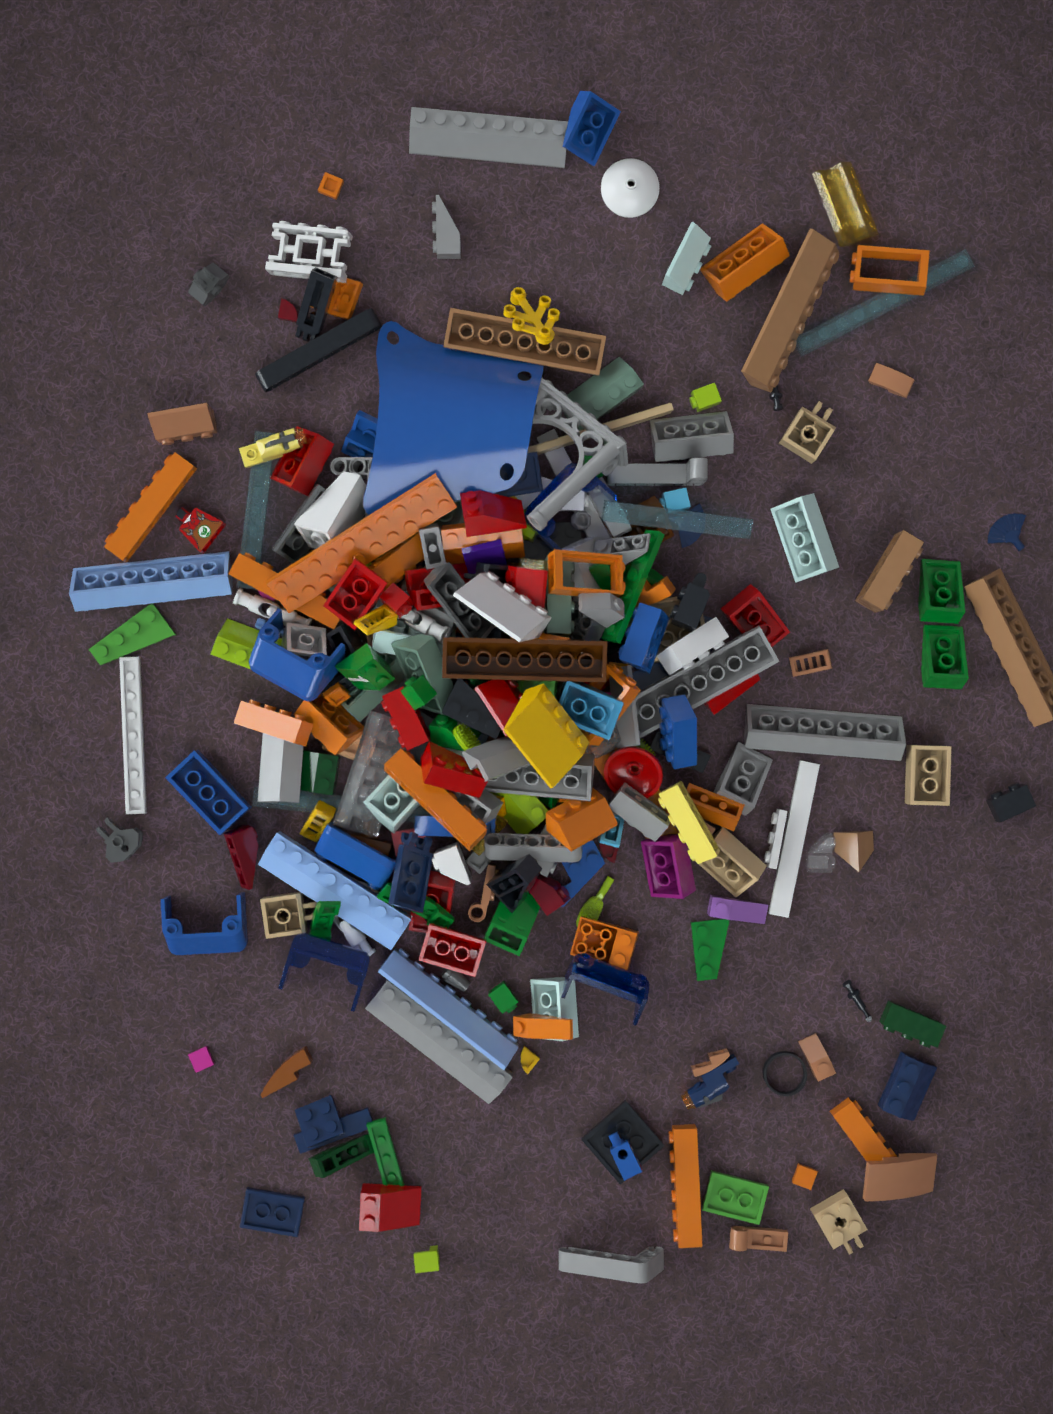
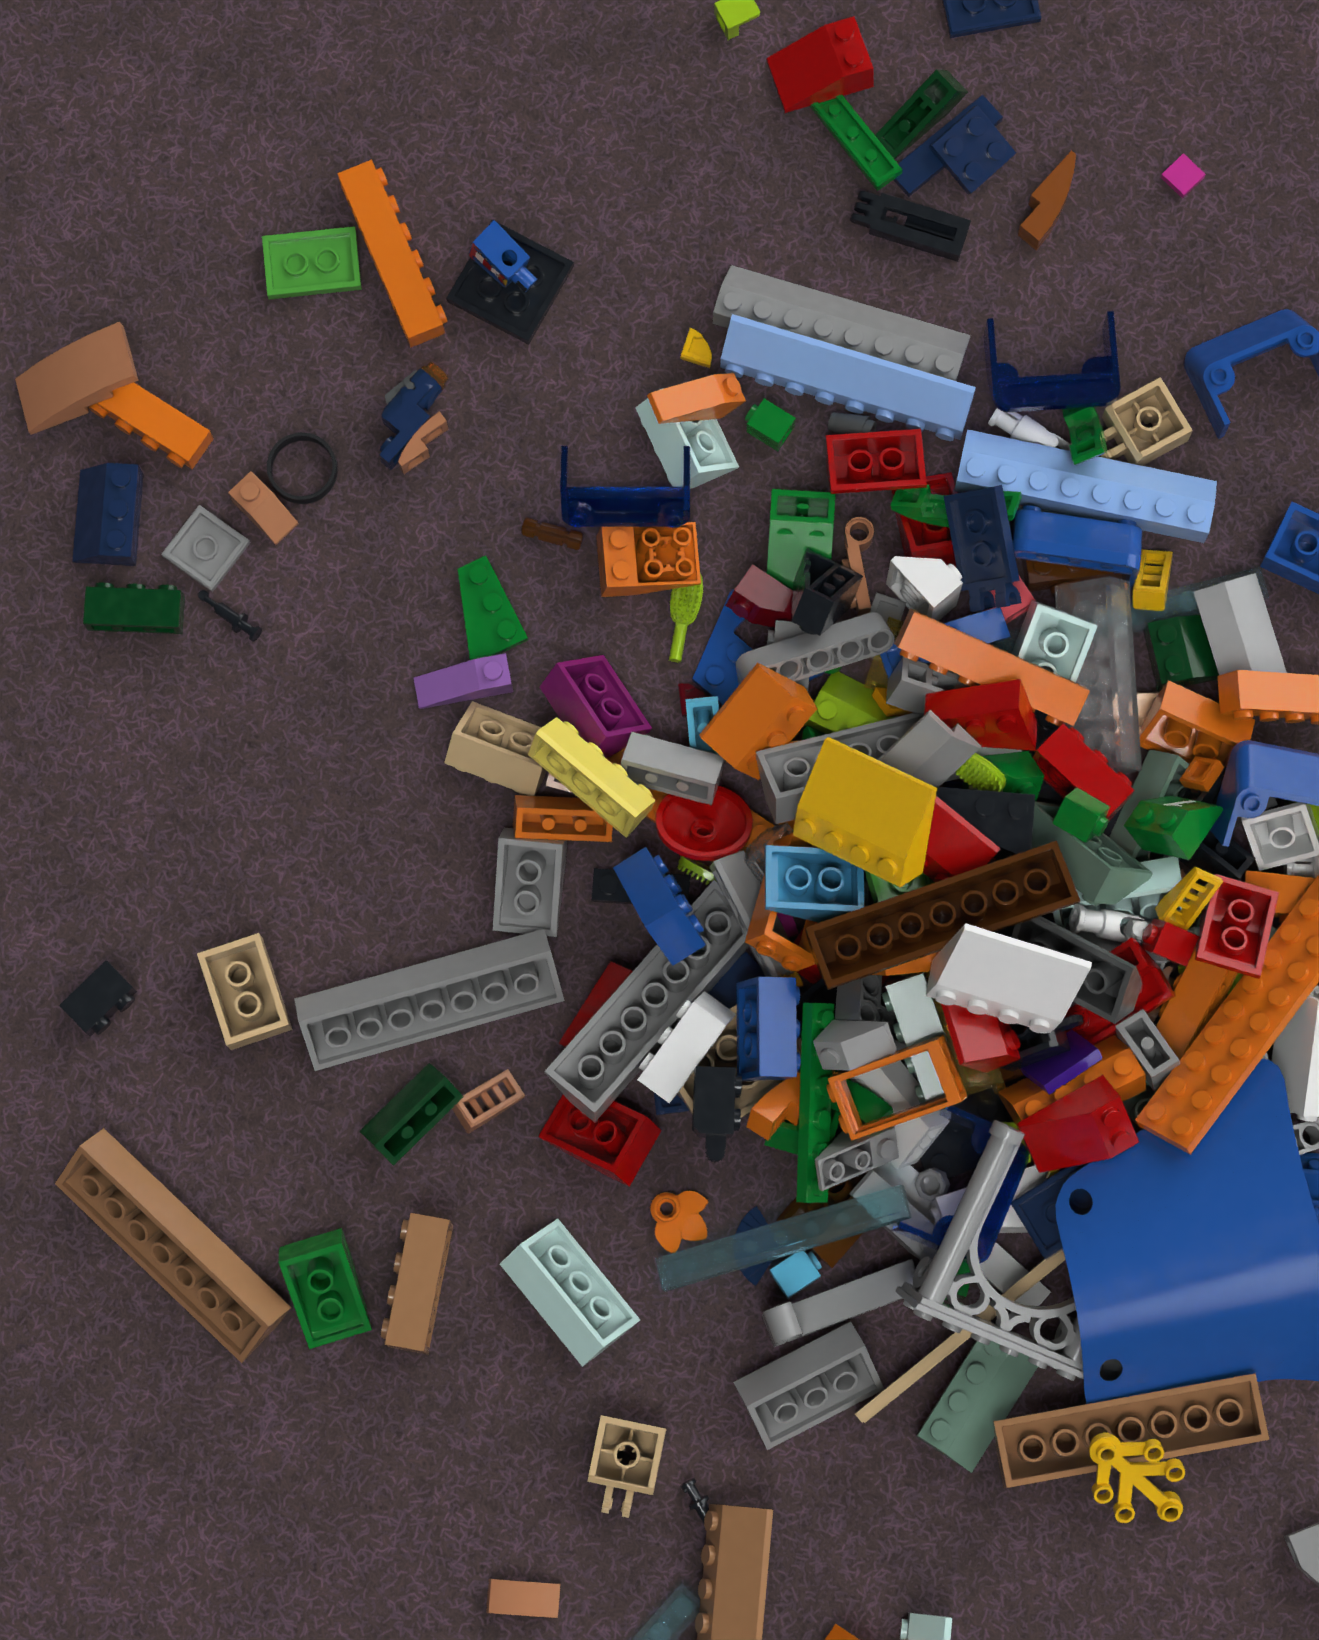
camera: 160 degrees right, 10 degrees down
(243, 851) = (1245, 494): dark red slope -> none
(367, 1083) = (924, 227): none -> black hinge
(611, 1265) = (457, 99): light grey beam -> none
(654, 980) = (552, 533): none -> reddish brown axle
(705, 397) = (811, 1455): lime brick -> none
(726, 553) = (682, 1222): none -> orange plate
(758, 1238) = (256, 216): nougat plate -> none
(775, 838) = (445, 809): white plate -> none
(794, 839) = (415, 822): white tile -> none
(804, 1176) = (217, 330): orange tile -> none
(819, 856) = (368, 810): clear slope -> none
(844, 1230) = (136, 268): tan hinge -> none
(854, 847) = (317, 842): medium nougat slope -> none
(857, 1046) = (205, 548): none -> light grey tile
(858, 669) = (411, 1113): none -> dark green brick
(943, 657) = (283, 1186): green slope -> none
(1007, 530) = (250, 1427): dark blue hand -> none

